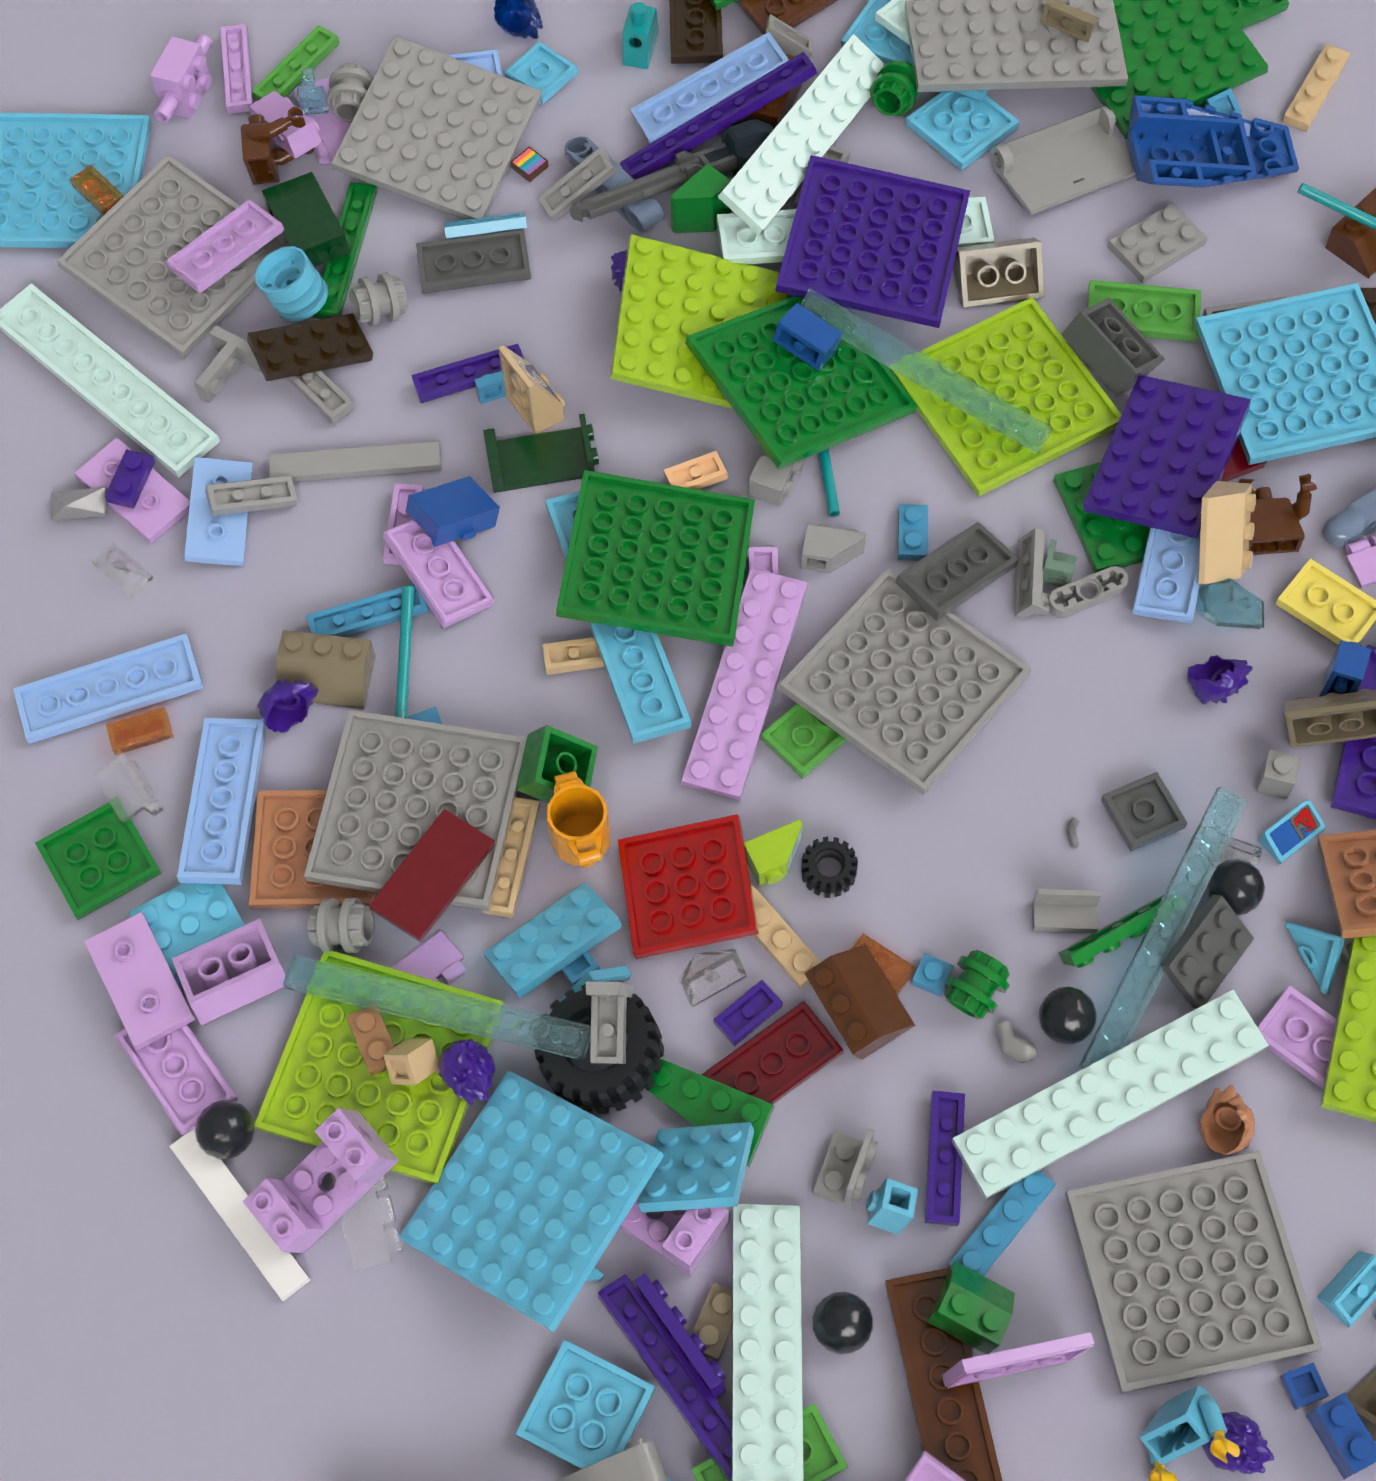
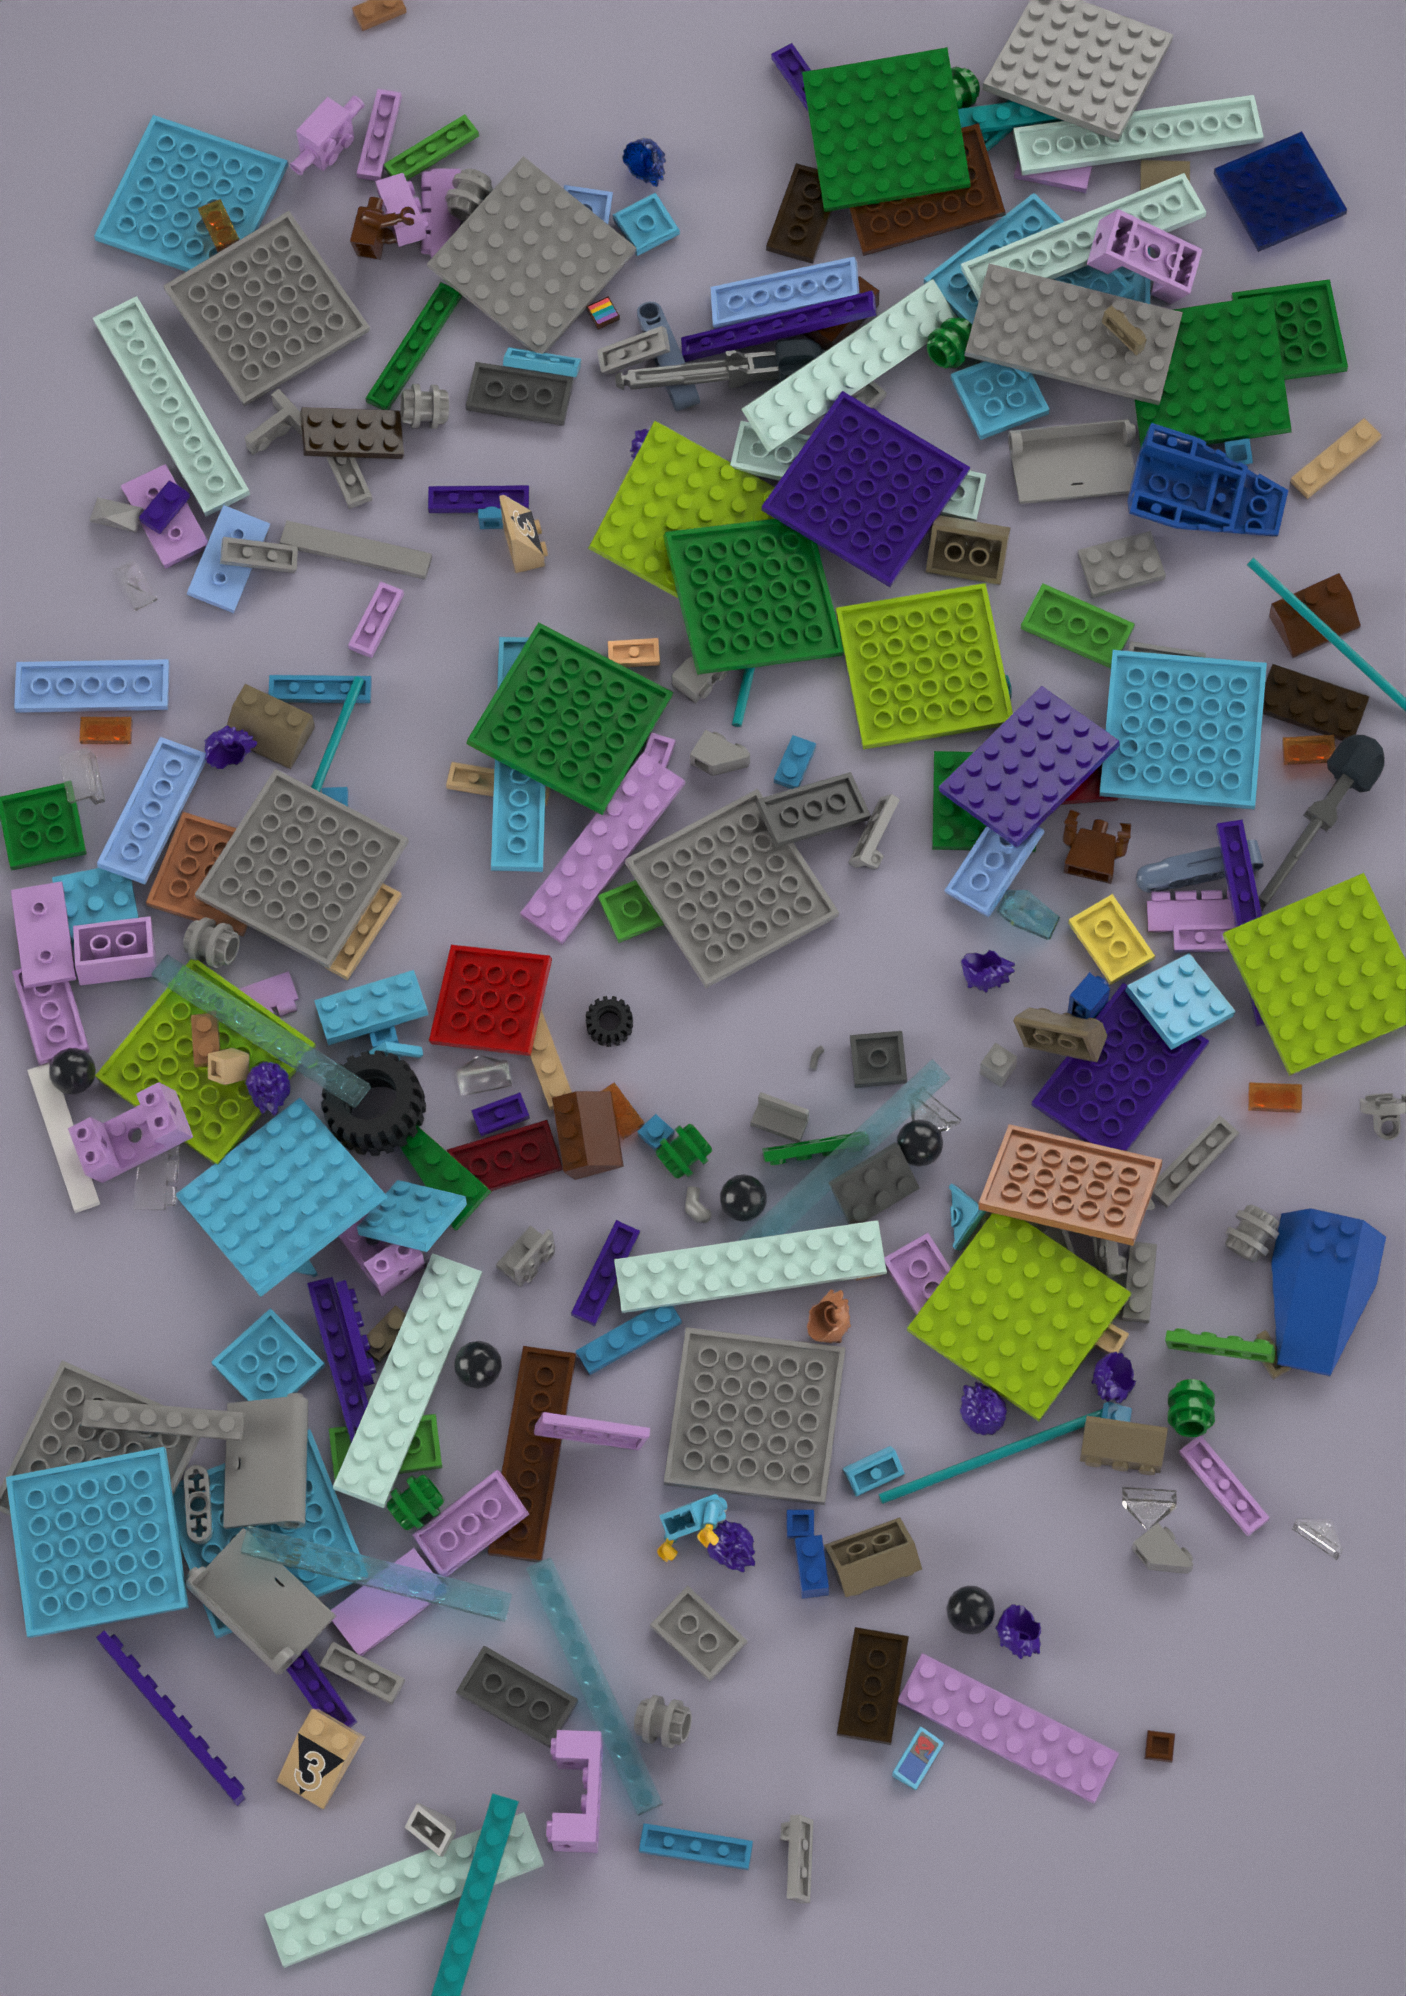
camera: 20 degrees right, 5 degrees up
(224, 246) = (309, 316): lavender plate -> none
(291, 284) = (354, 370): medium azure wheel -> none
(307, 218) = (387, 311): dark green panel -> none
(311, 97) = (434, 187): clear light blue plate -> none
(432, 875) = (293, 926): dark red tile -> none
(439, 574) = (390, 669): lavender tile -> none
(453, 511) = (419, 622): blue container -> none
(540, 457) = (510, 595): dark green panel -> none
(551, 754) = (422, 871): green brick -> none
(578, 822) = (421, 920): light orange container -> none
(608, 1021) = (382, 1083): light grey bracket -> none
(641, 25) = (749, 212): teal torso -> none
(697, 202) = (725, 401): green slope -> none
(773, 852) = (570, 995): lime slope -> none
(789, 39) = (876, 263): light grey slope -> none
(807, 336) = (769, 562): blue brick -> none
(891, 1206) = (548, 1293): medium azure brick -> none
(930, 373) = (857, 624): clear light blue plate -> none
(972, 1308) = (576, 1384): green slope -> none
(1058, 567) = (901, 832): sand green panel -> none
(1094, 581) = (936, 867): light grey beam -> none
(1112, 346) = (1032, 651): dark grey slope -> none
(1226, 531) = (1039, 850): tan slope -> none
(1292, 831) = (990, 1114): slope -> none

